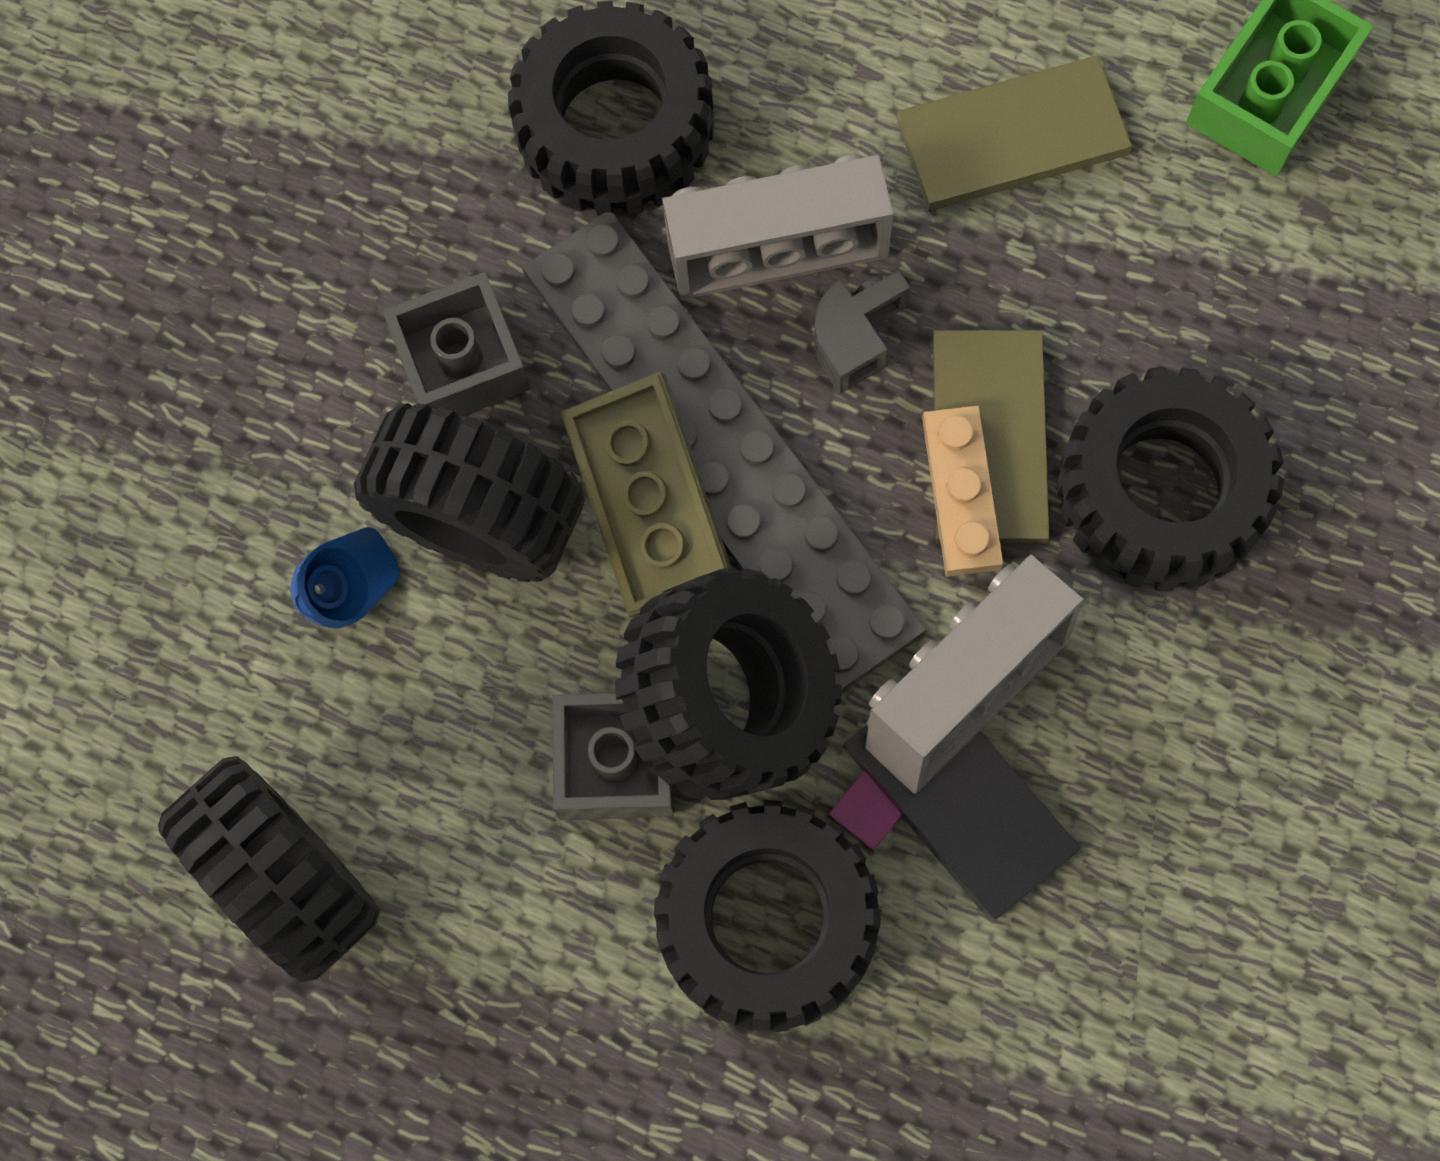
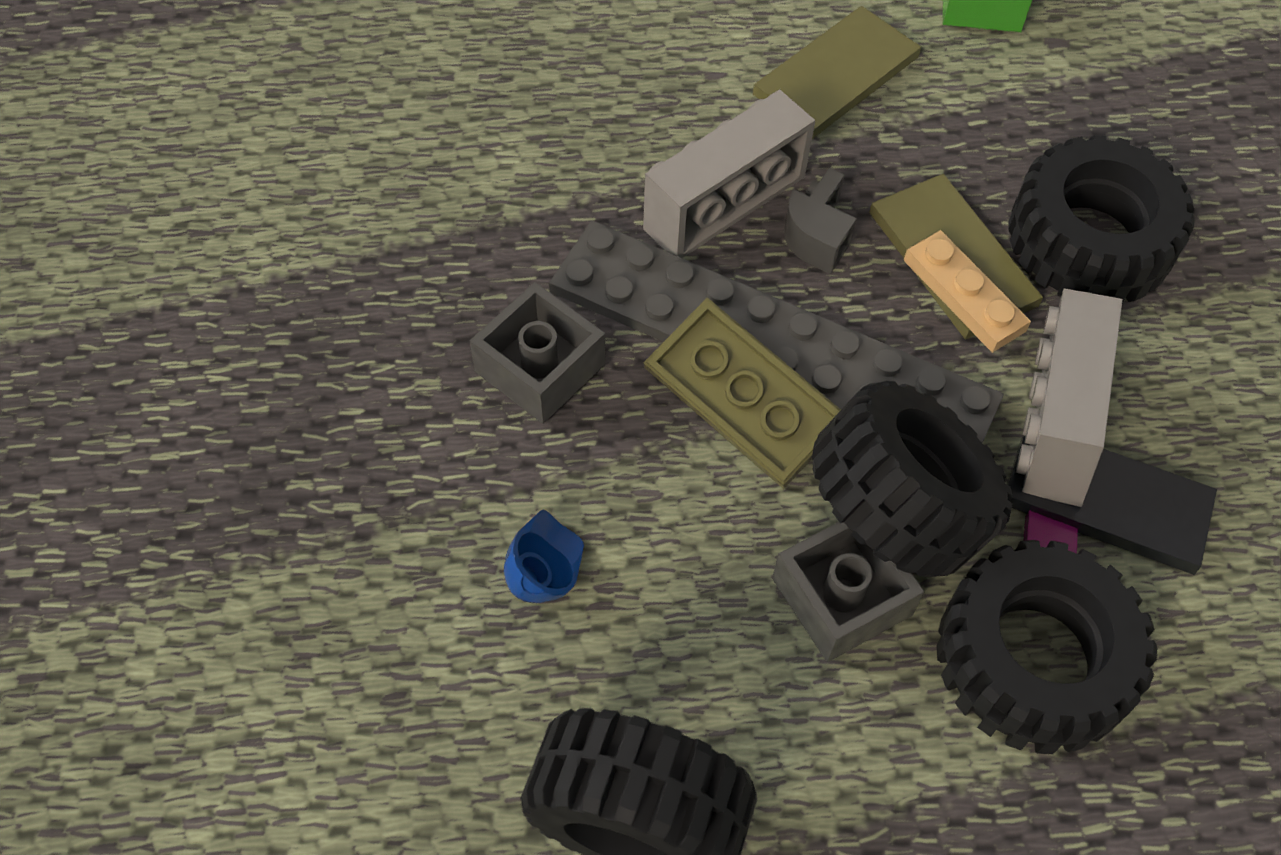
camera: 35 degrees left, 15 degrees down
(469, 492) = (626, 428): black tyre -> none
(599, 48) = (557, 109): black tyre -> none

